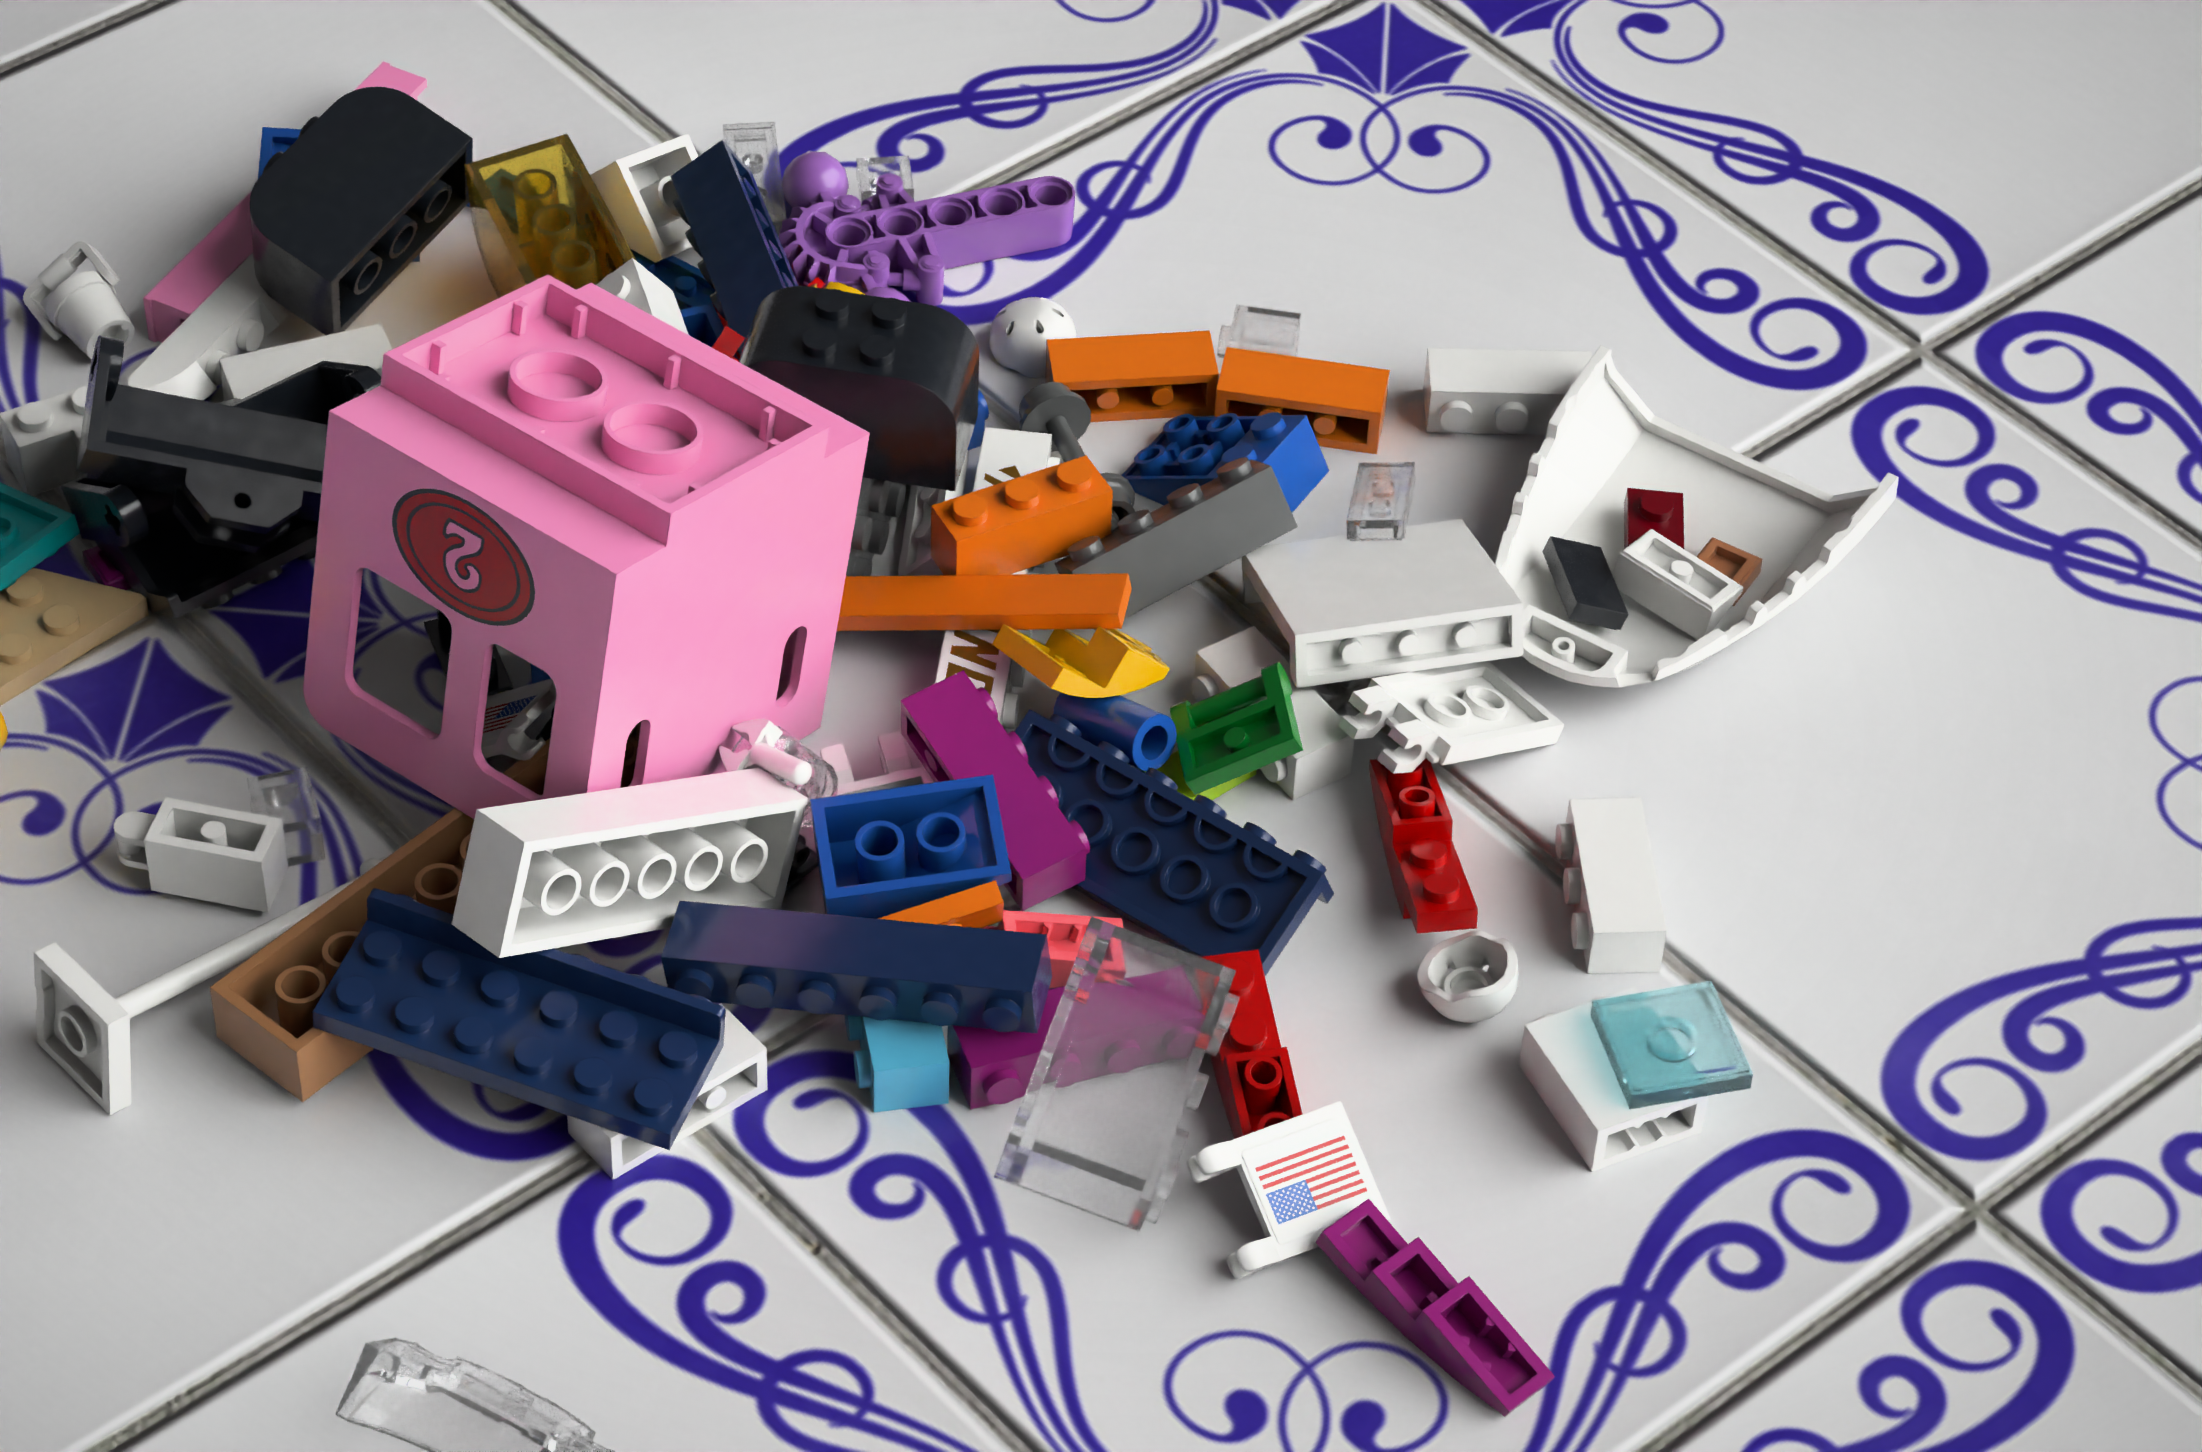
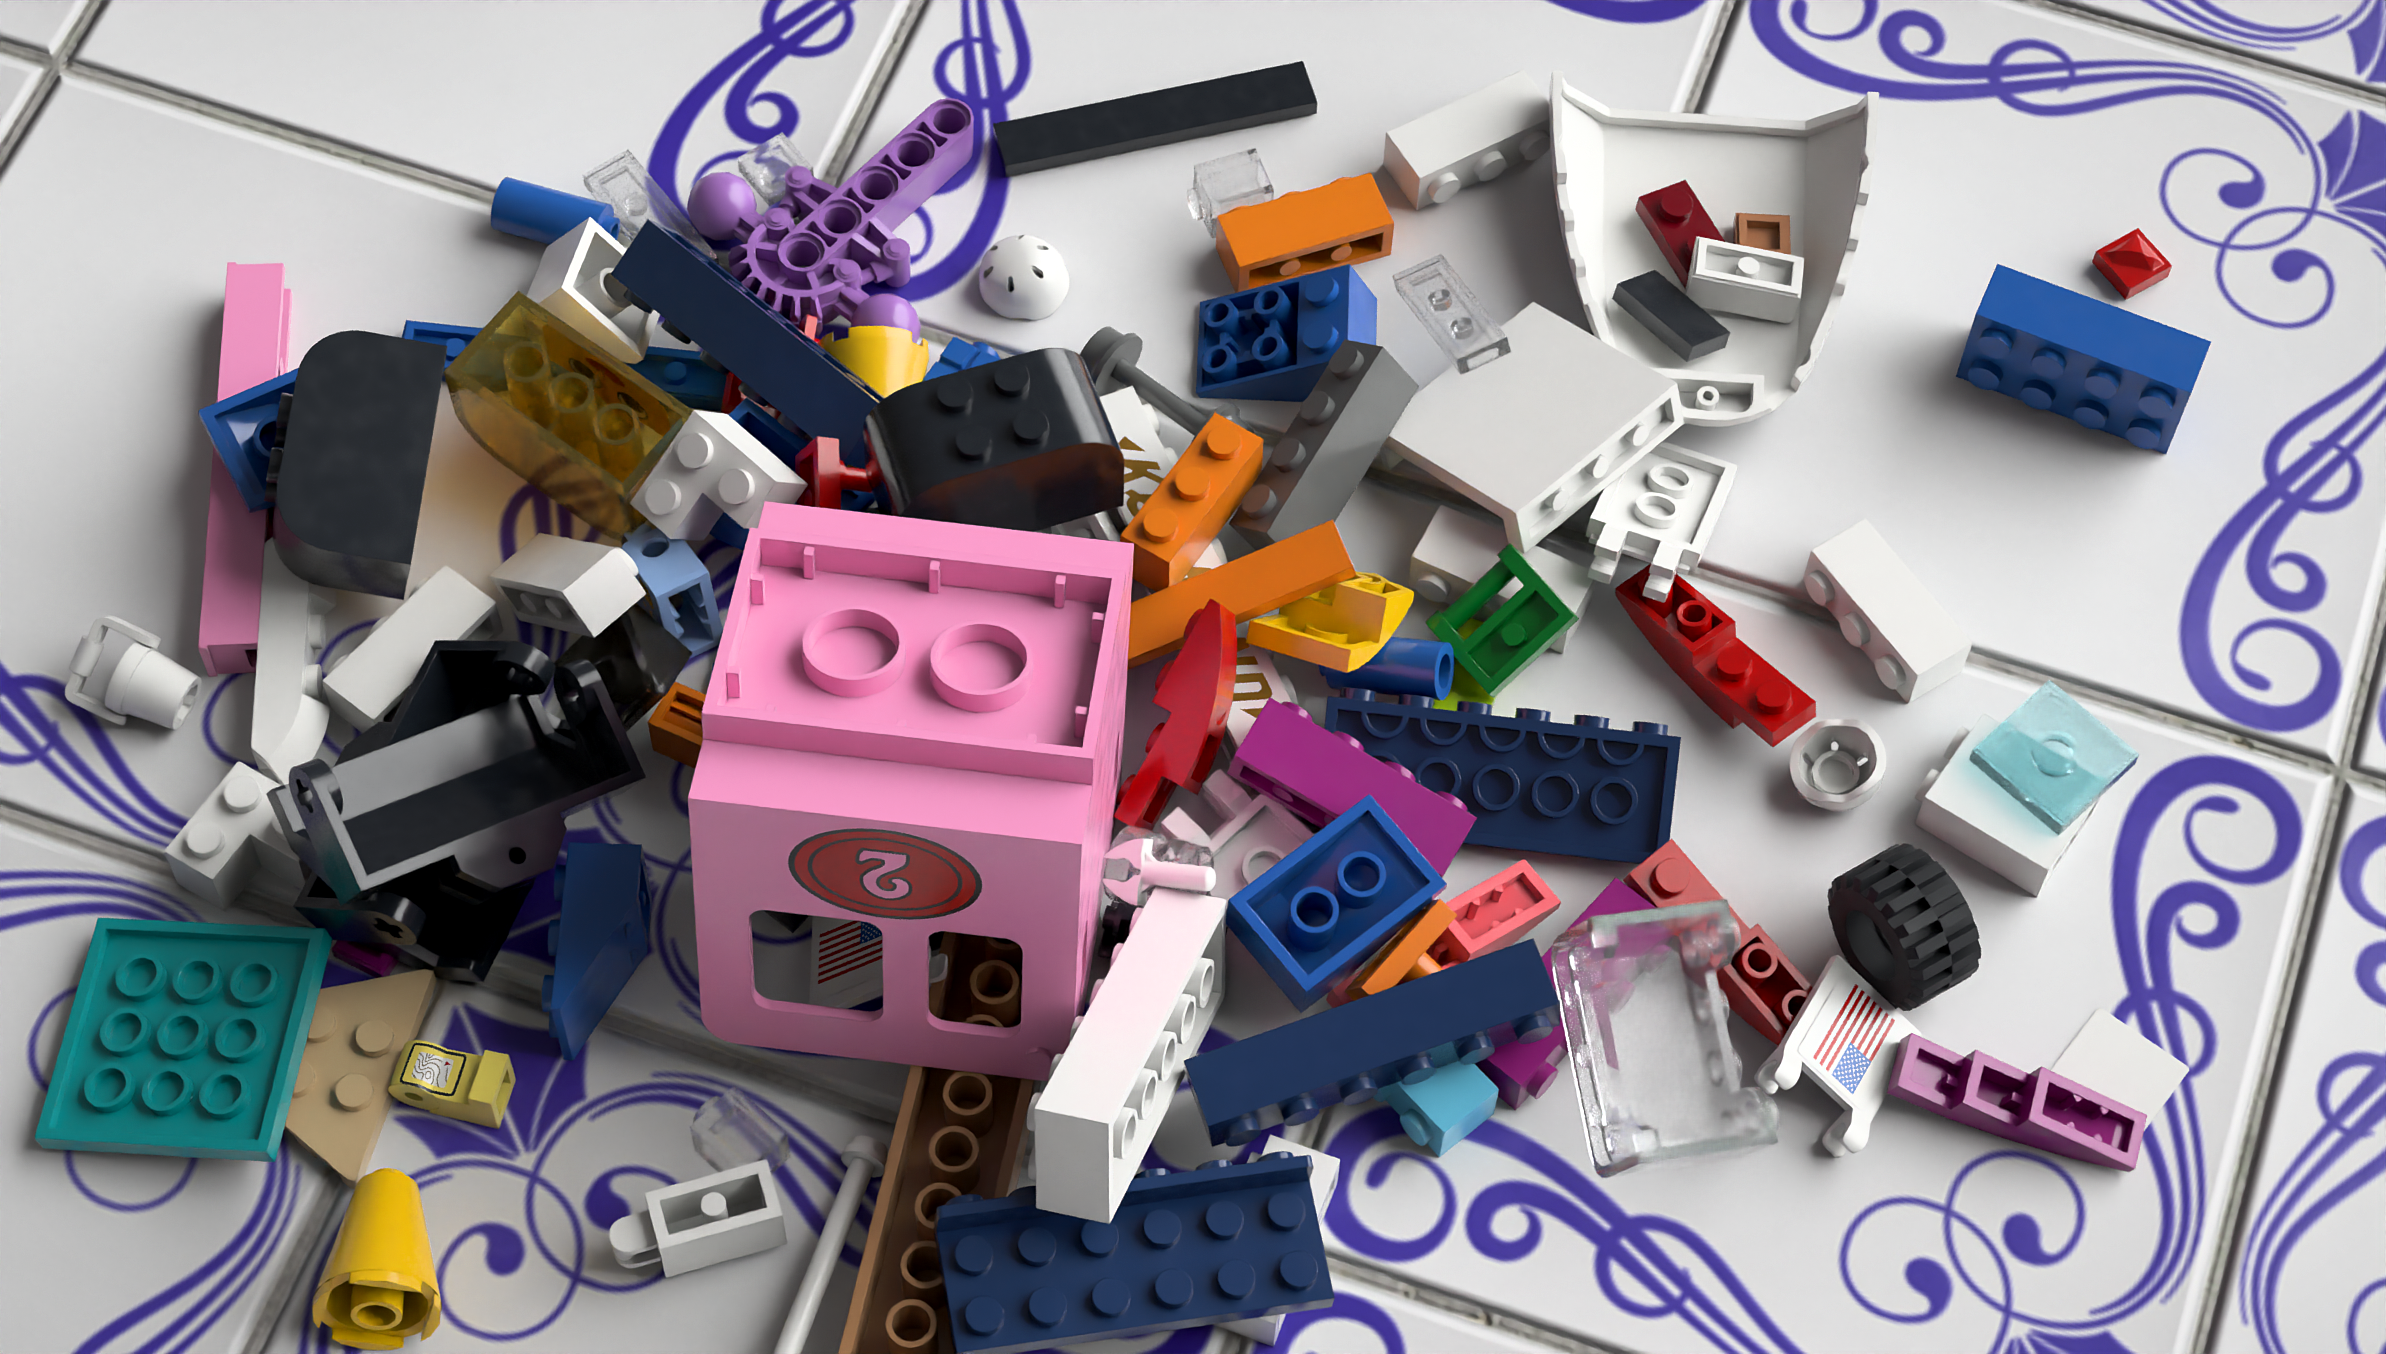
camera: 30 degrees left, 15 degrees up
(94, 674) = (454, 1082): none -> light yellow leg
(260, 628) = (597, 938): none -> blue slope
(651, 122) = (544, 212): none -> blue brick
(910, 656) = (1199, 697): none -> red slope
(1137, 374) = (1145, 277): orange brick -> none
(1243, 275) = (1154, 118): none -> black tile
(1418, 1105) = (1904, 926): none -> black tyre
(1567, 1336) = (2121, 1065): none -> white sticker
(1952, 767) = (2082, 359): none -> blue brick
(2078, 733) = (2132, 263): none -> red tile

